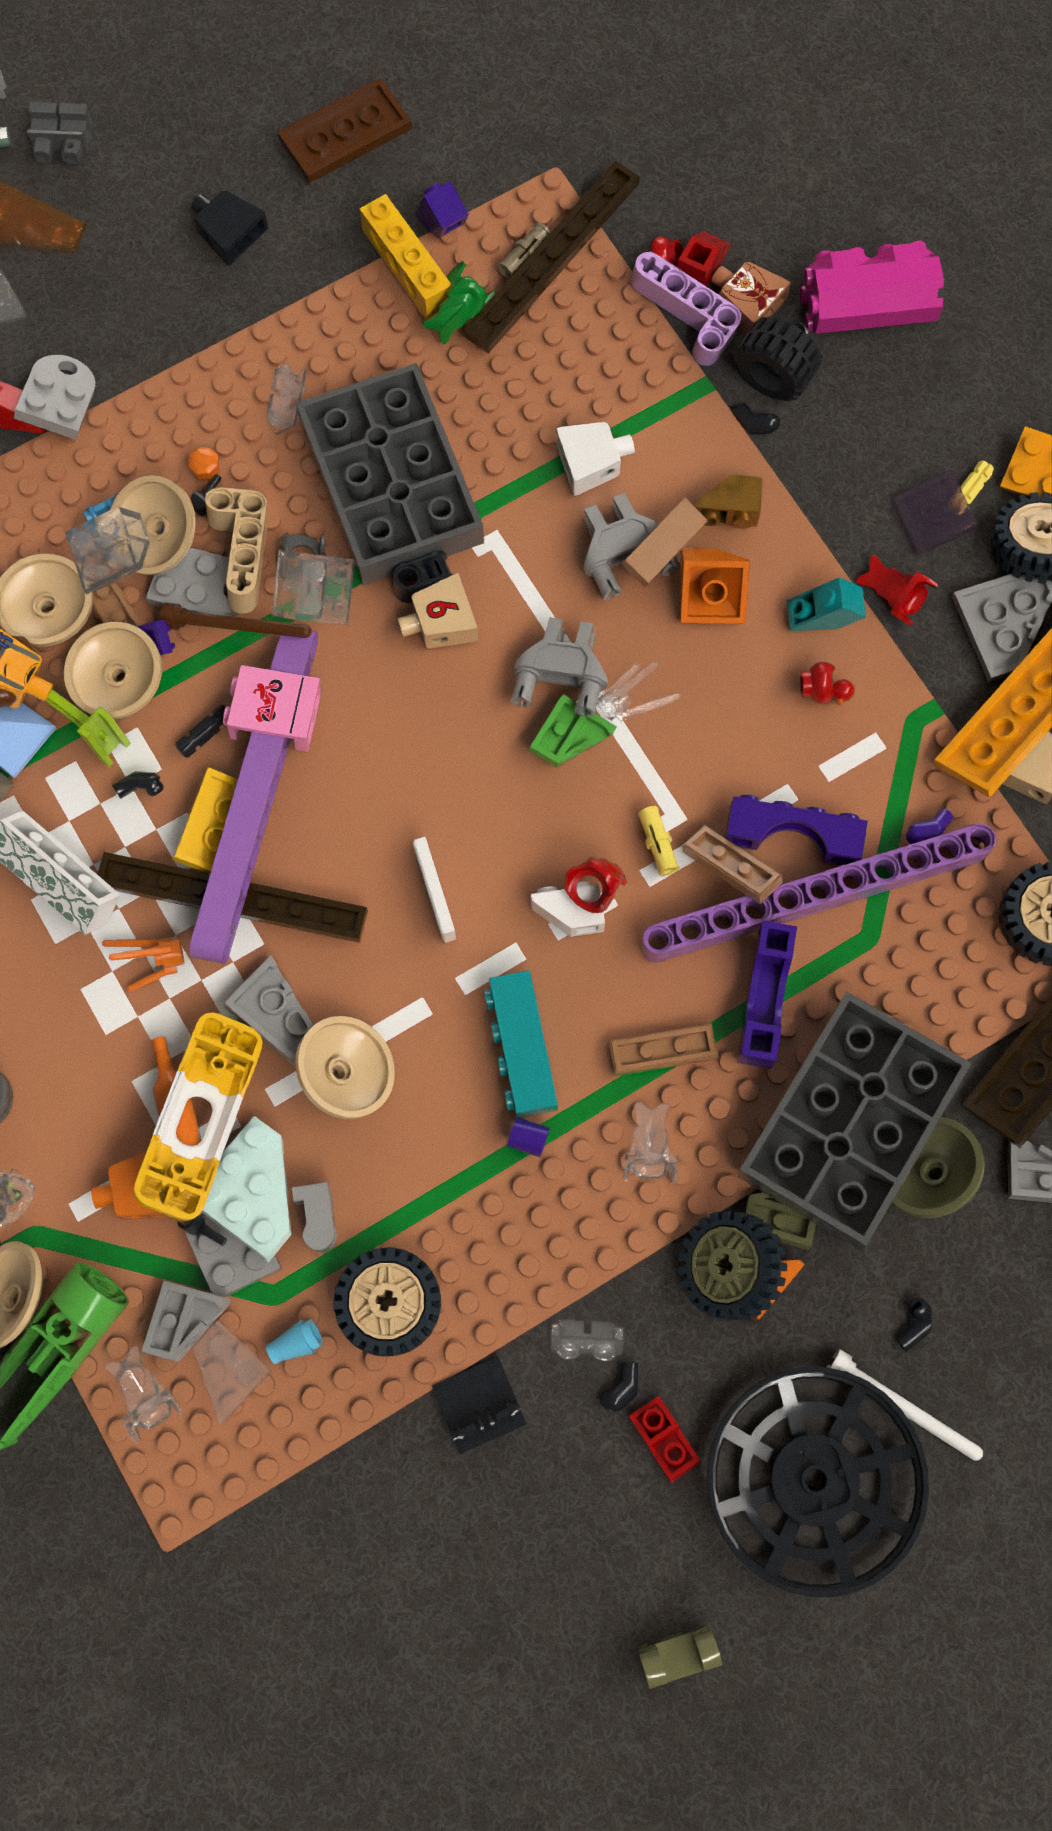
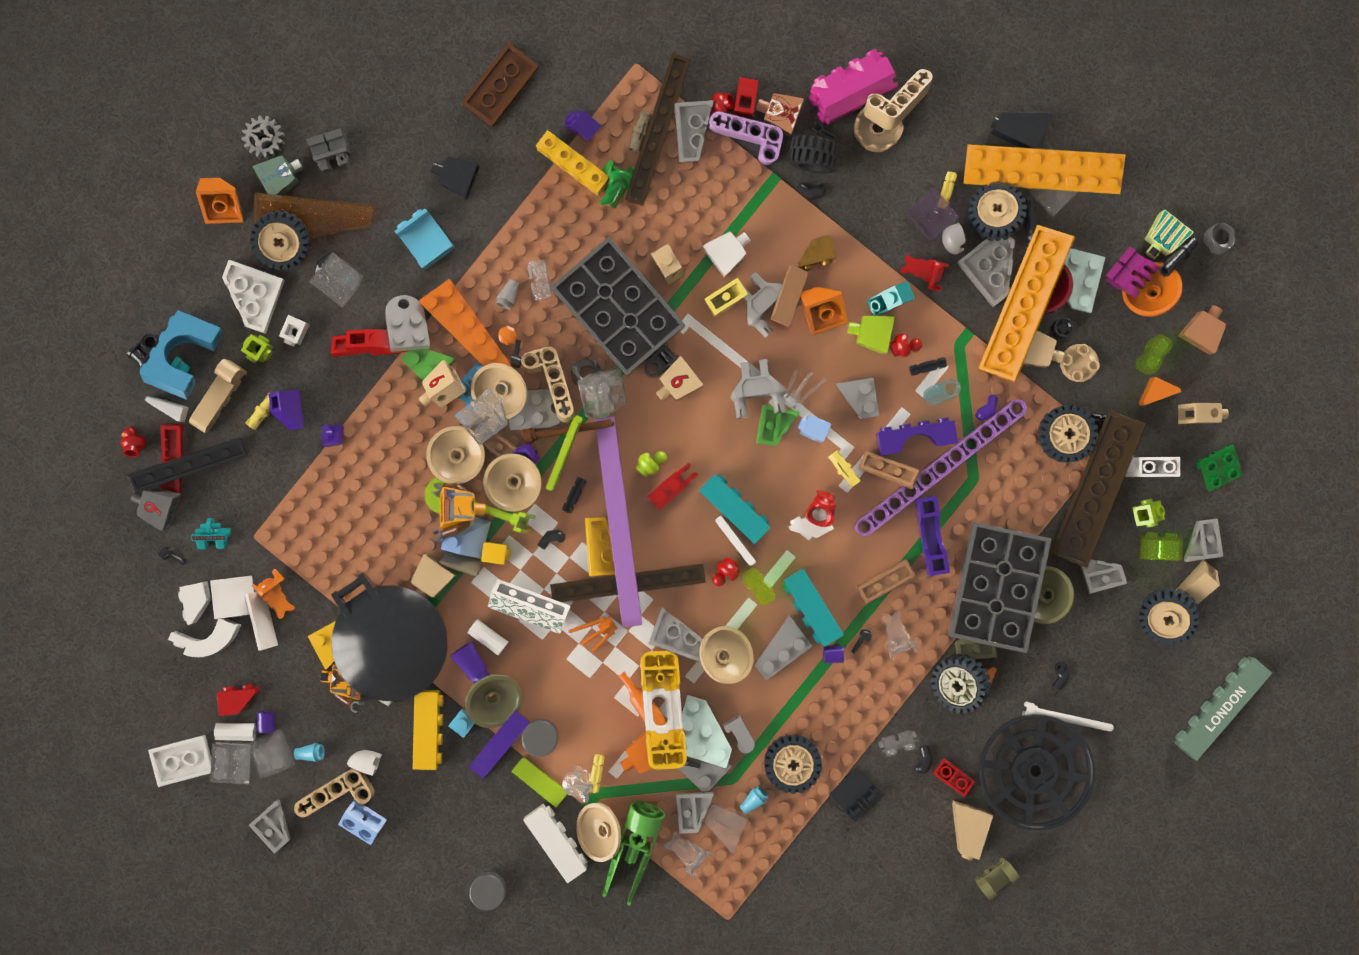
camera: 20 degrees left, 15 degrees up
(38, 772) = (495, 553): none -> yellow brick
(45, 1195) = (597, 772): none -> light yellow axle
(64, 462) = (424, 361): none -> bright green wing
(67, 493) = (442, 385): none -> tan torso
(140, 292) = (424, 238): none -> medium azure panel
(141, 416) = (459, 319): none -> orange wing
(213, 652) = (564, 453): none -> lime tile
(228, 406) = (507, 296): none -> light grey cone
(273, 705) = (608, 471): bright pink panel -> none
(340, 724) = (648, 465): none -> lime animal
(366, 773) = (670, 487): none -> red hinge
(404, 930) = (726, 568): none -> red animal
(445, 980) = (754, 581): none -> clear neon green brick
(446, 1099) = (783, 649): none -> light grey wing
(453, 838) = (734, 508): none -> teal brick
(490, 431) = (667, 264): none -> tan torso
(562, 513) = (725, 297): none -> light yellow slope
(593, 1126) = (864, 635): none -> black hand
(604, 268) = (691, 128): none -> light grey wing
(630, 753) = (814, 428): none -> light blue brick
(662, 1545) = (971, 829): none -> tan slope
(726, 741) = (861, 397): none -> light grey wing
(780, 647) = (873, 332): none -> lime torso
(852, 731) = (928, 366): none -> black axle
(853, 777) = (938, 393): none -> clear light blue piece
(894, 344) = (875, 141): none -> tan plate
(936, 333) = (890, 113): none -> tan beam
(955, 552) = (953, 238): none -> light grey hair

